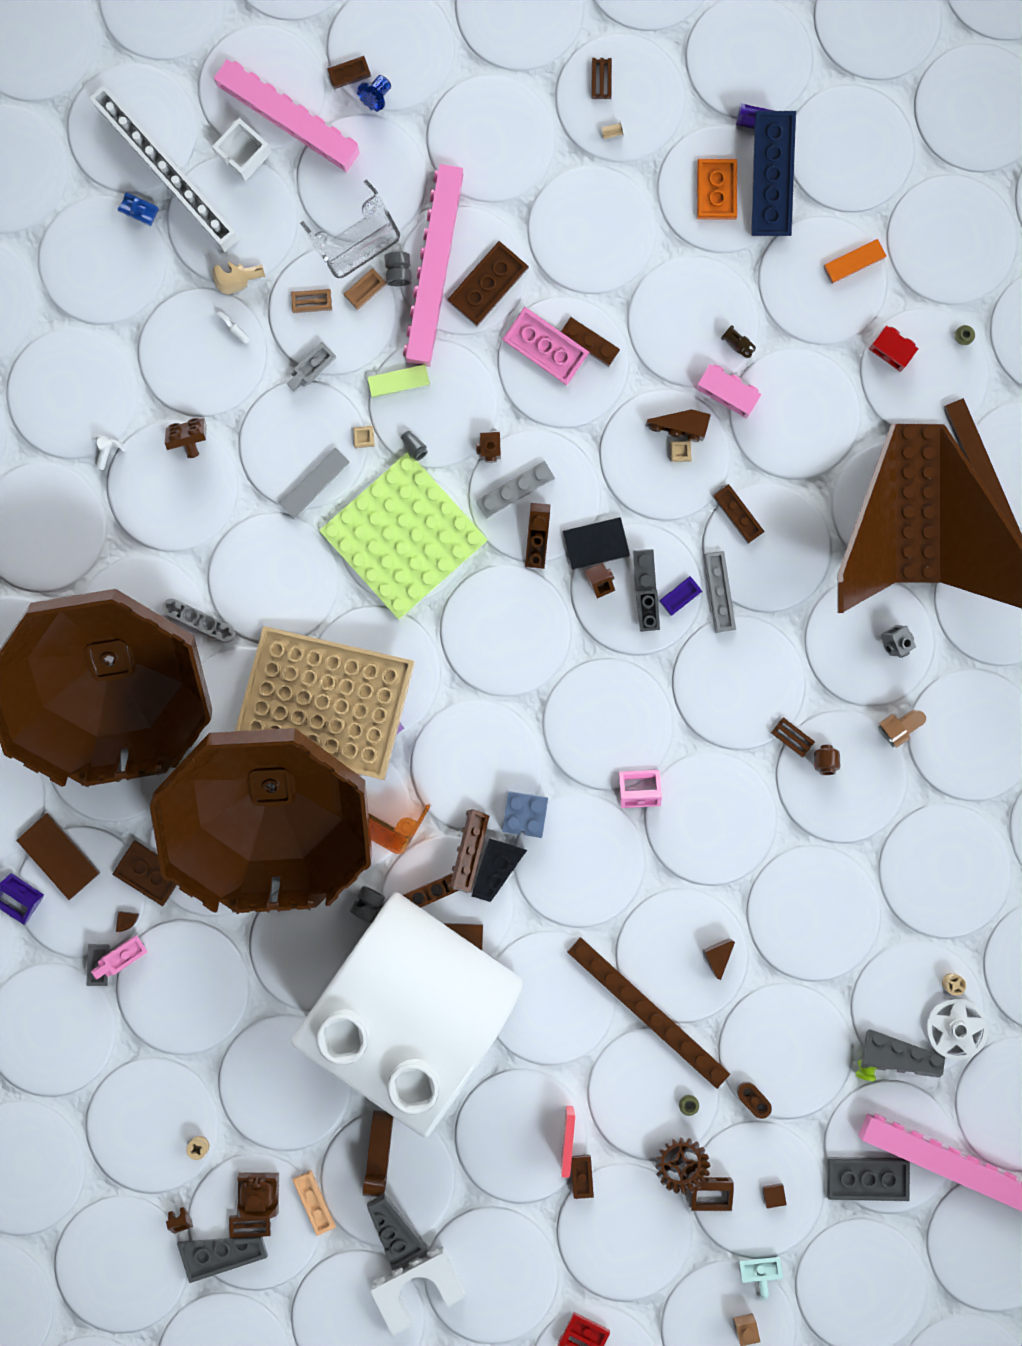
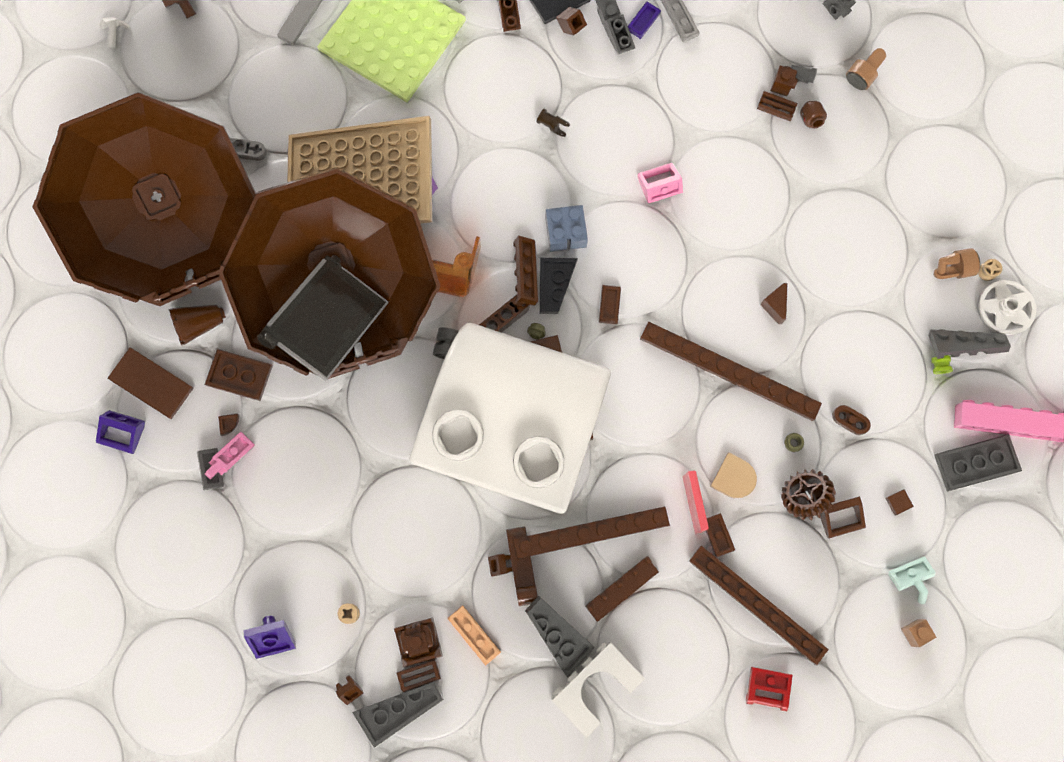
camera: 20 degrees left, 10 degrees down
(115, 1152) = (269, 638): none -> dark purple tile
(118, 807) = (195, 321): none -> reddish brown cone
(248, 853) = (324, 318): none -> clear smoke door
(355, 1143) = (498, 565): none -> reddish brown tile
(458, 1139) = (590, 532): none -> reddish brown plate
(462, 915) = (536, 331): none -> olive plate
(470, 1200) = (622, 589): none -> reddish brown hinge
(546, 906) = (609, 304): none -> reddish brown tile
(548, 692) = (552, 122): none -> dark brown piece
(599, 1255) = (758, 605): none -> reddish brown plate
(617, 1123) = (735, 477): none -> tan tile
(809, 713) = (784, 80): none -> reddish brown brick
(833, 709) = (805, 73): none -> dark grey cone
(925, 972) = (963, 264): none -> medium nougat piece

